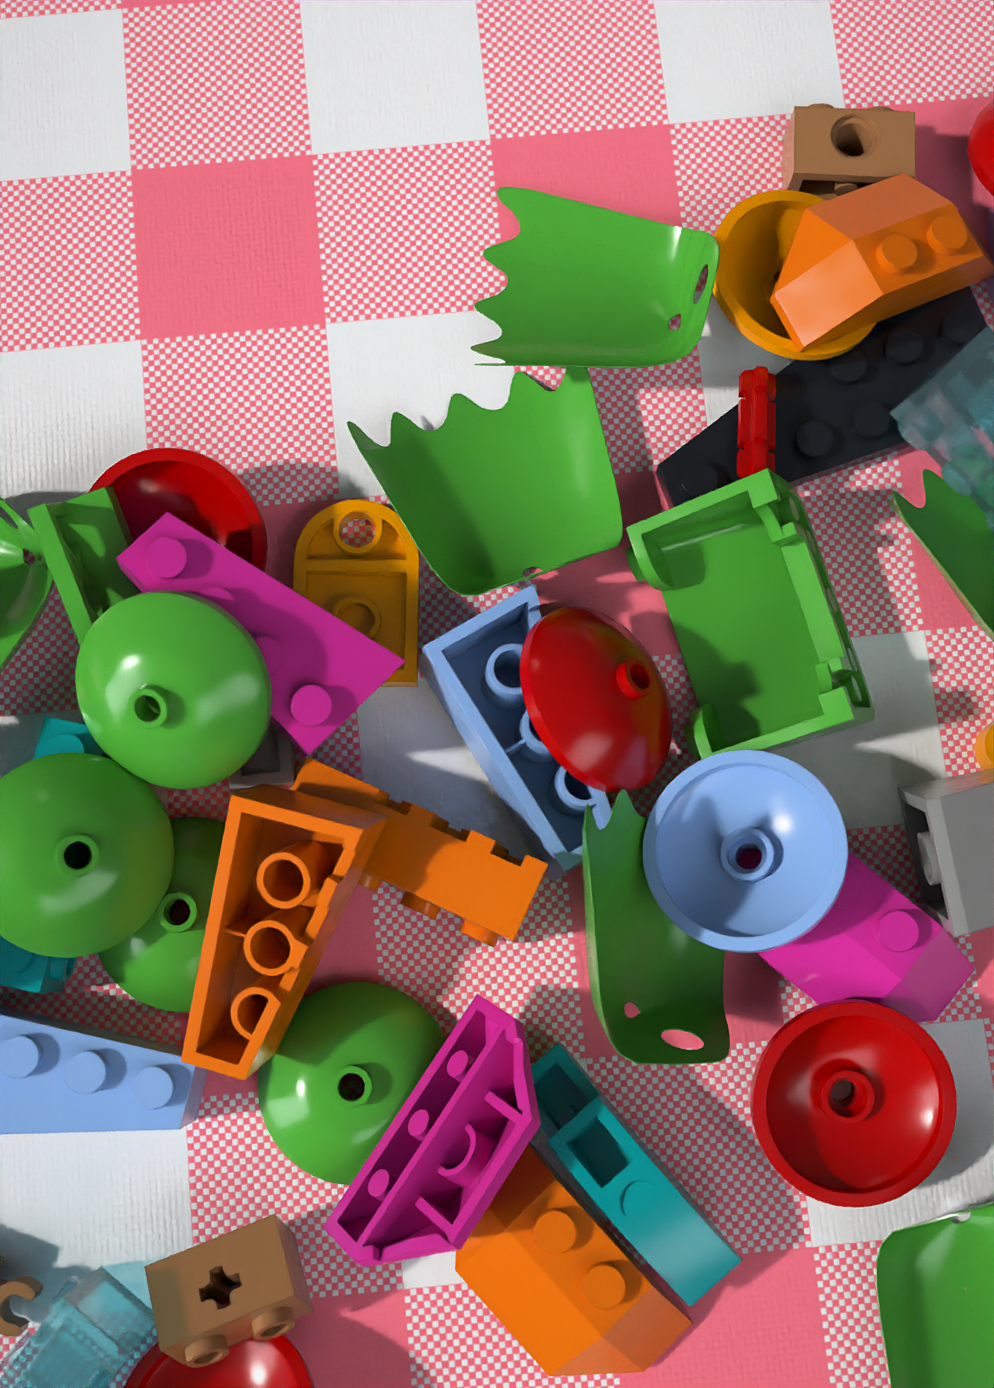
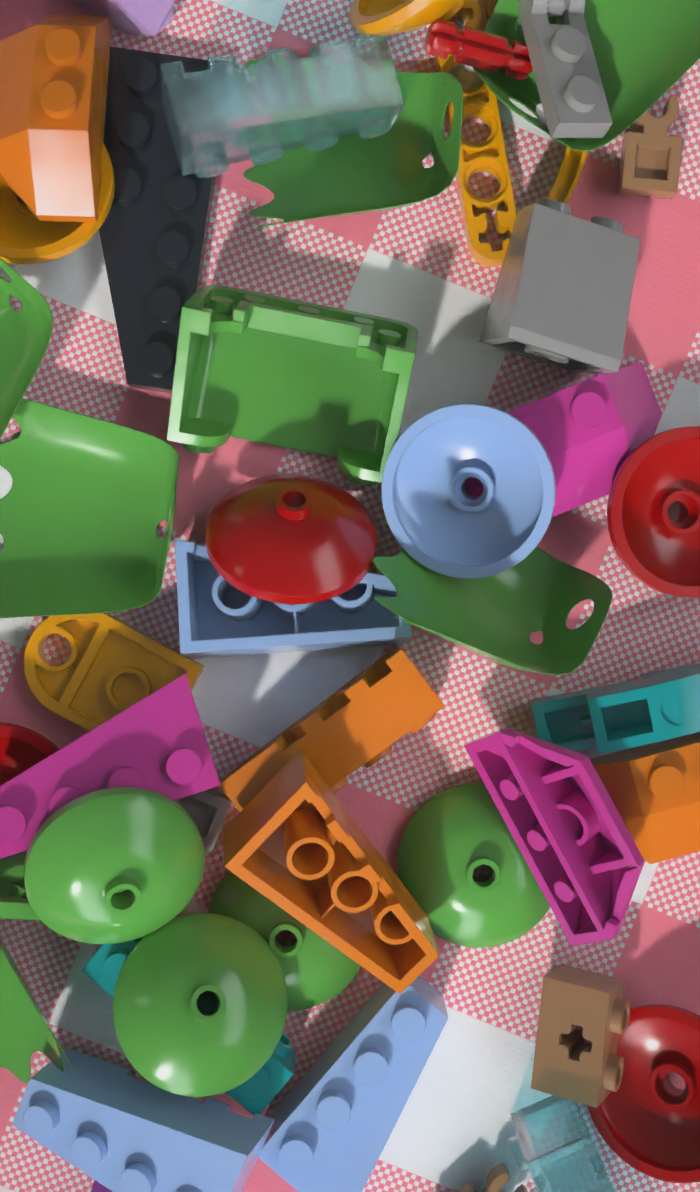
camera: 60 degrees left, 10 degrees up
(756, 421) = (136, 288): red axle -> none

